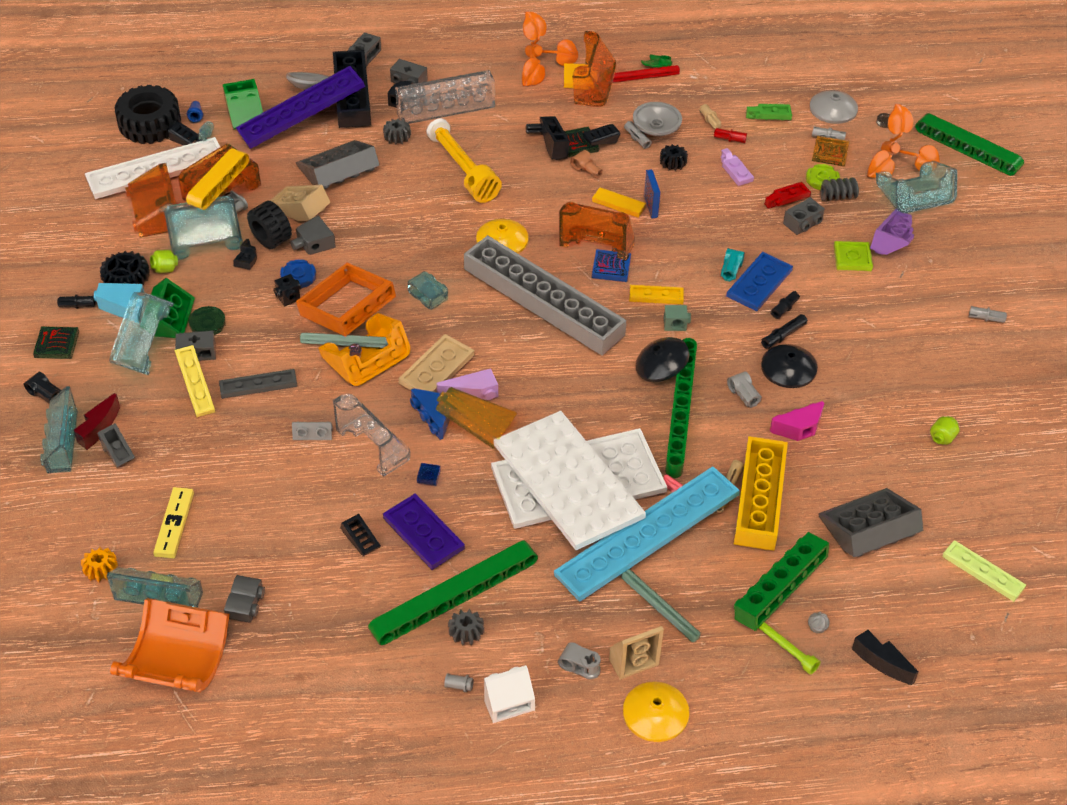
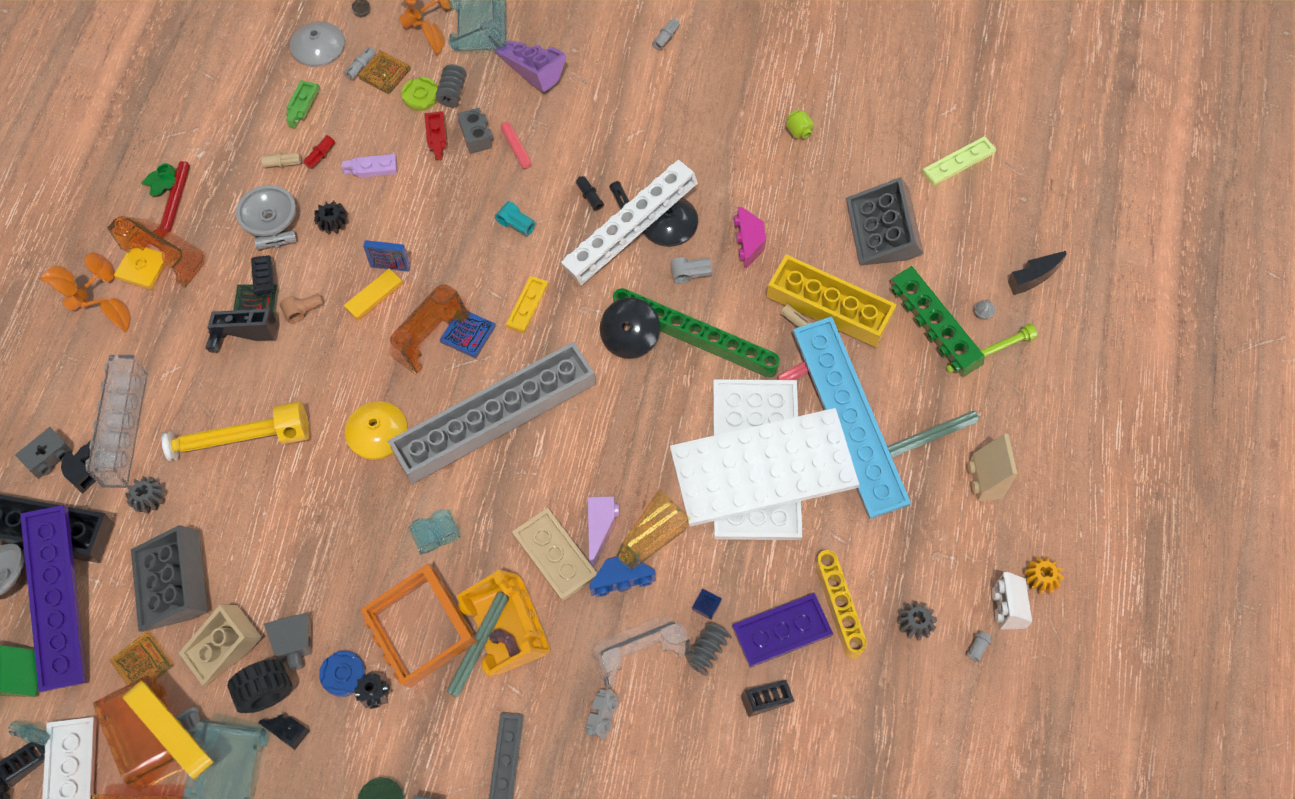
camera: 70 degrees left, 15 degrees up
(275, 170) = (141, 659): none -> clear yellow tile
(386, 482) = (706, 647): none -> dark grey piece
(452, 592) = (879, 644): green beam -> none
(467, 558) = (840, 614): none -> yellow beam
(548, 721) = (1052, 573): none -> light orange gear
(579, 659) = (980, 527): light grey piece -> none
(654, 721) = (1044, 489): yellow dish -> none
(676, 318) = (573, 296): sand green brick -> none
(759, 281) = (545, 204): blue tile -> none
(765, 330) = (669, 186): none -> white brick
(806, 247) = (516, 145): none -> coral axle
(853, 256) = (543, 110): lime tile -> none

